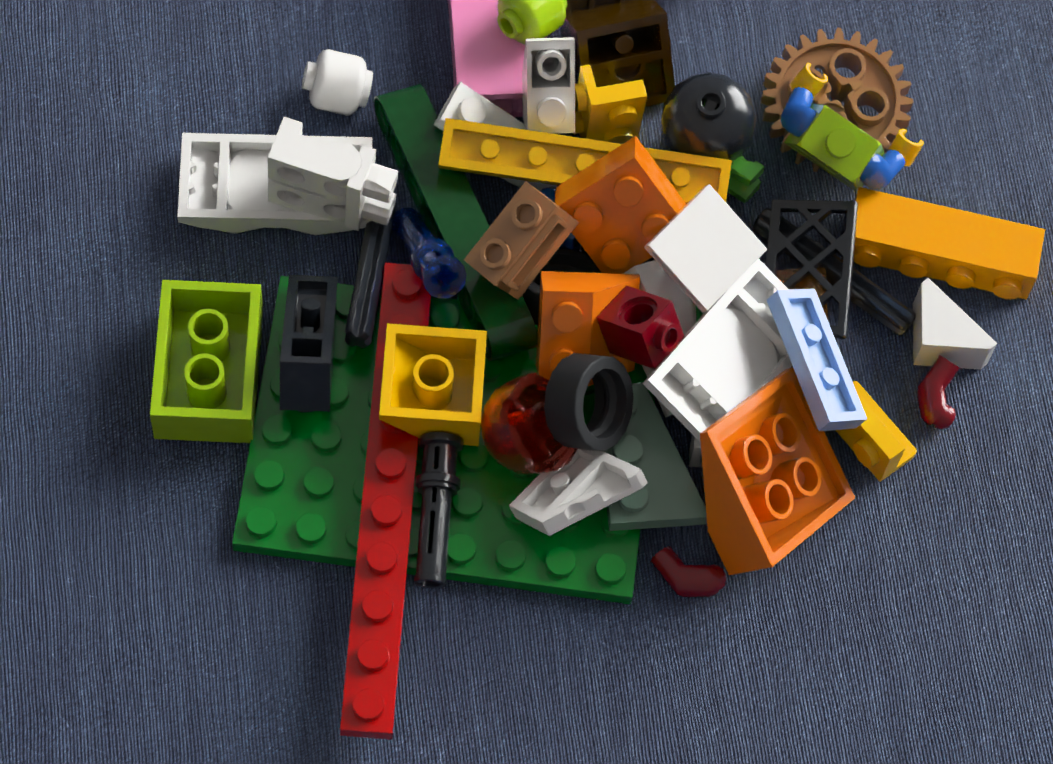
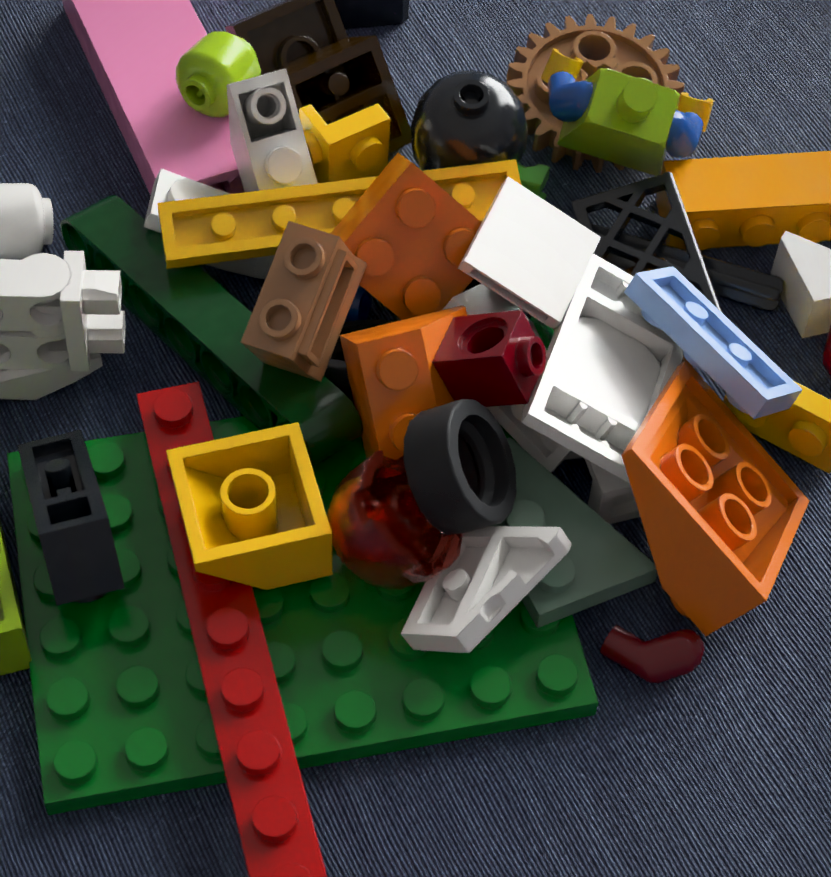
camera: 15 degrees left, 10 degrees down
(368, 283) = (123, 426): black axle -> none
(430, 257) = (194, 366): clear blue pin -> none
(437, 486) = (300, 636): black pin -> none

